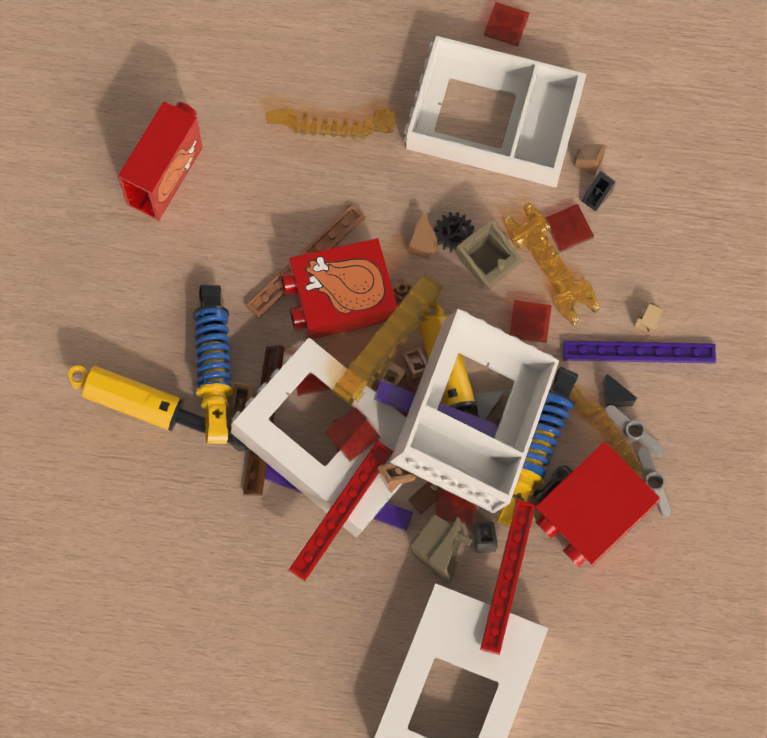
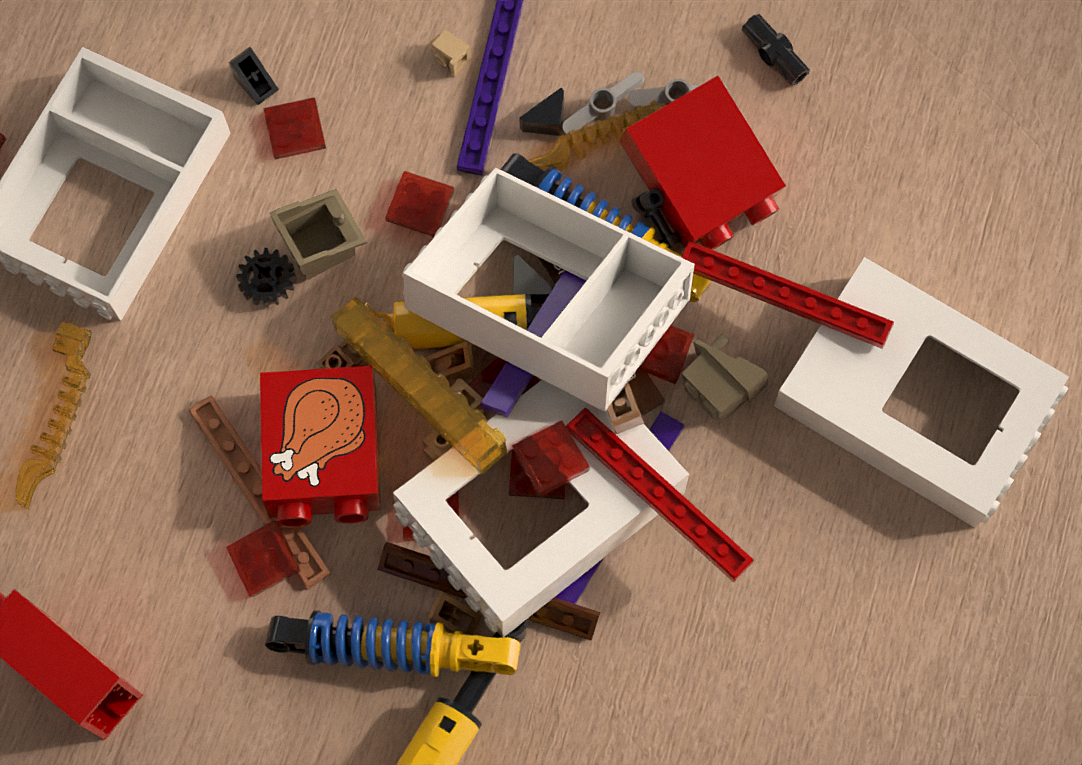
camera: 75 degrees left, 0 degrees up
(258, 272) = (263, 559): none -> clear red plate
(423, 240) = (266, 320): medium nougat slope -> none
(485, 537) = (713, 321): dark grey slope -> none
(568, 289) = (384, 145): clear yellow piece -> none
(590, 157) = (202, 74): medium nougat slope -> none
(707, 546) = (775, 49): none -> black piece

